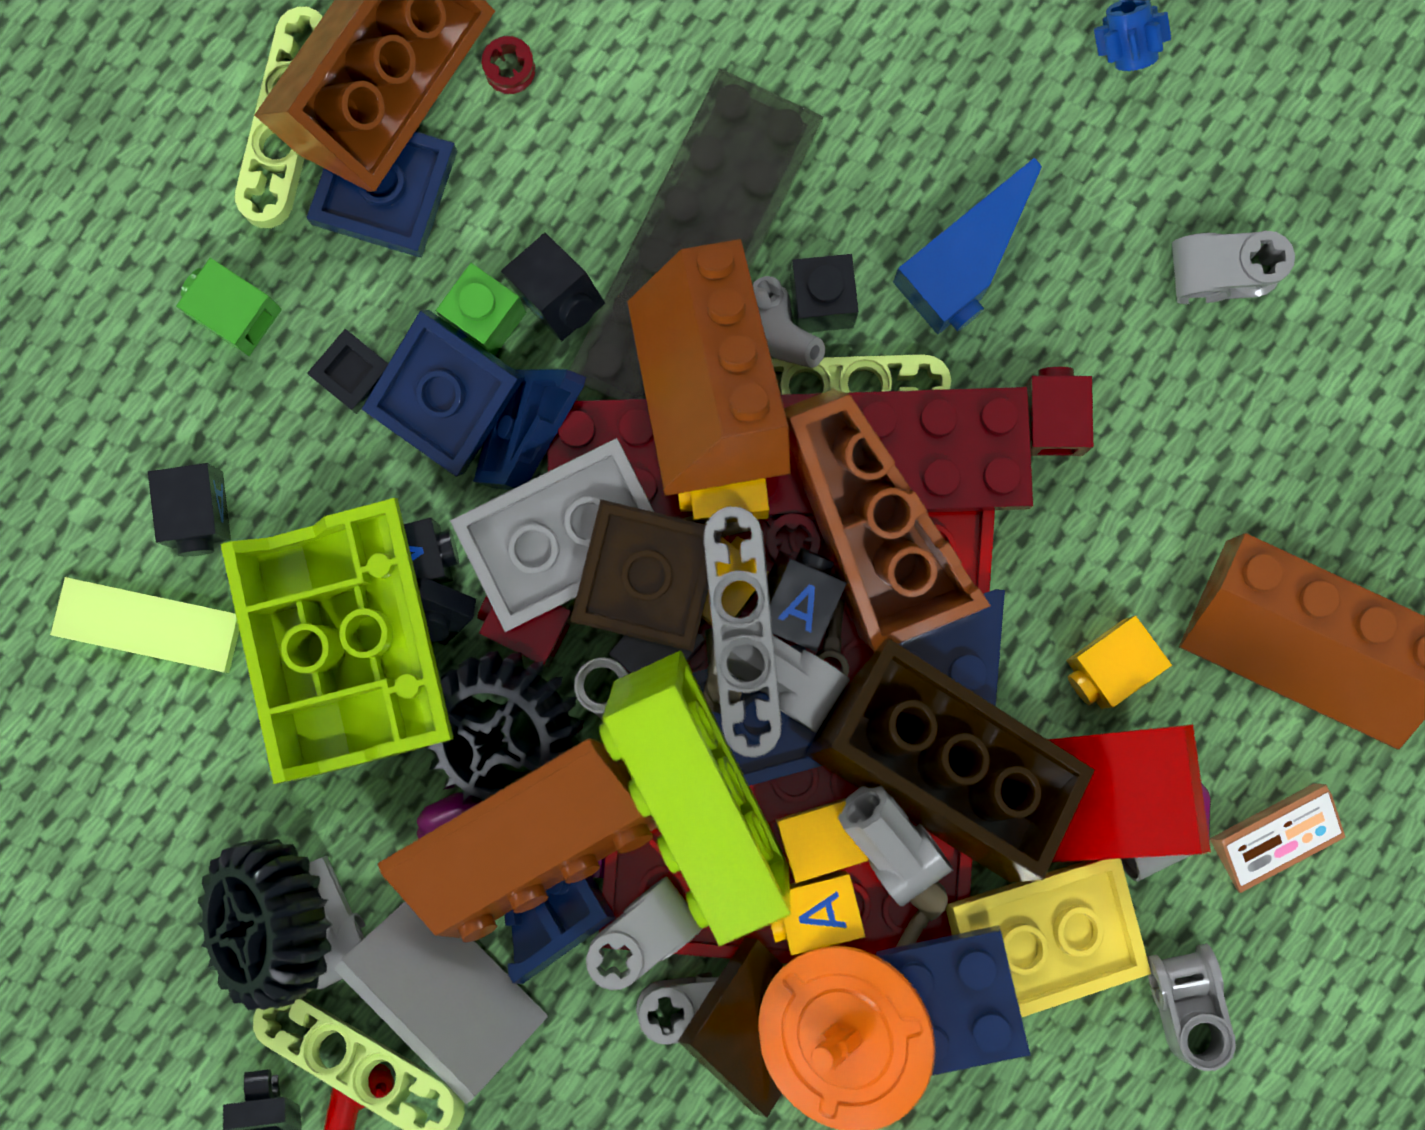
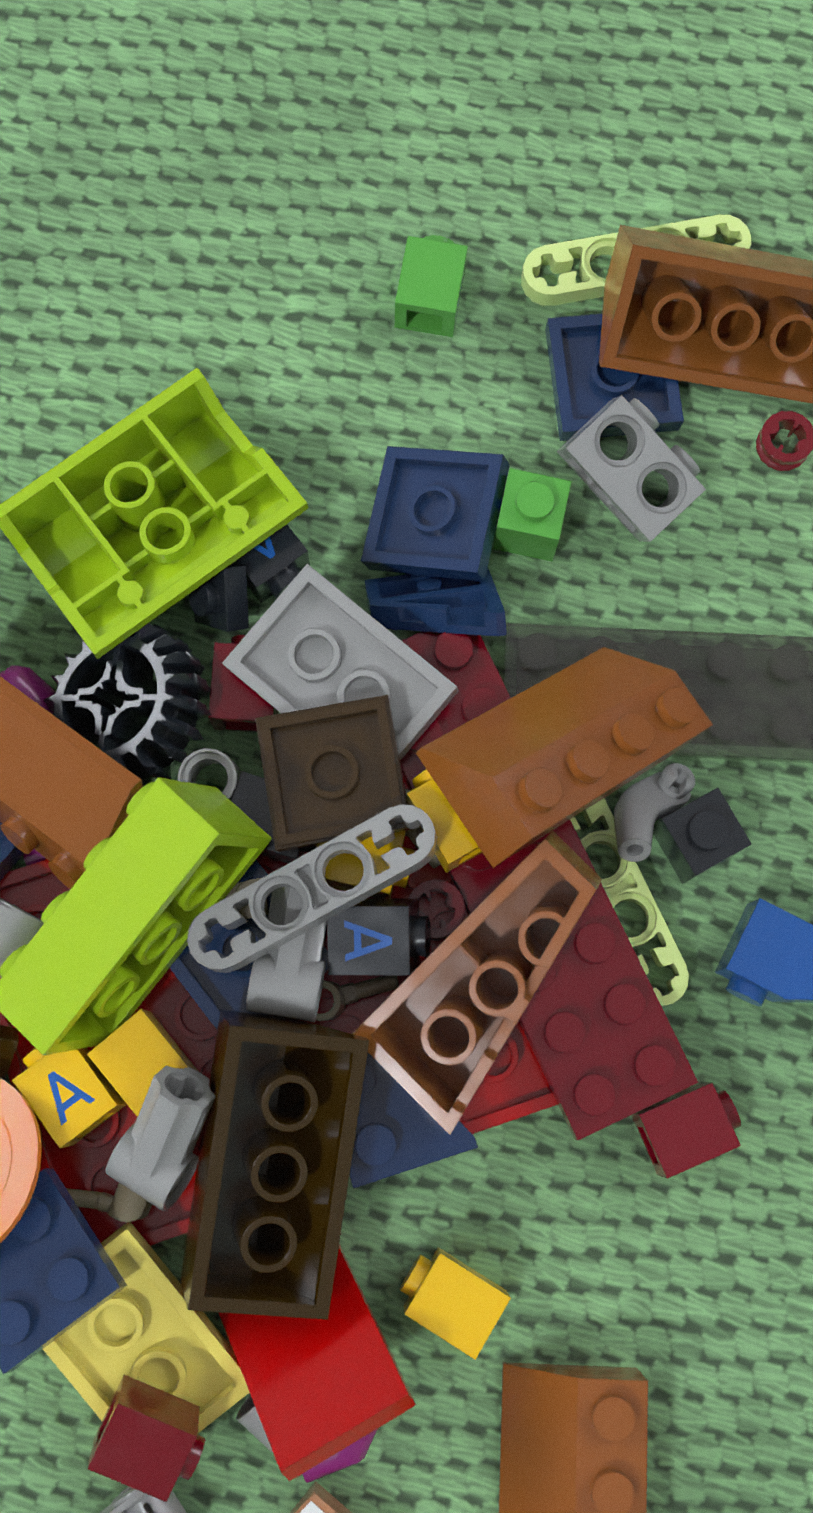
camera: 60 degrees right, 5 degrees down
(146, 625) = (99, 341): yellowish green tile -> none
(189, 508) = (224, 332): black brick -> none
(348, 370) = (419, 418): black plate -> none
(485, 219) = (620, 481): none -> light grey brick
(553, 287) = (585, 571): black brick -> none
(1127, 958) = (147, 1439): none -> dark red brick

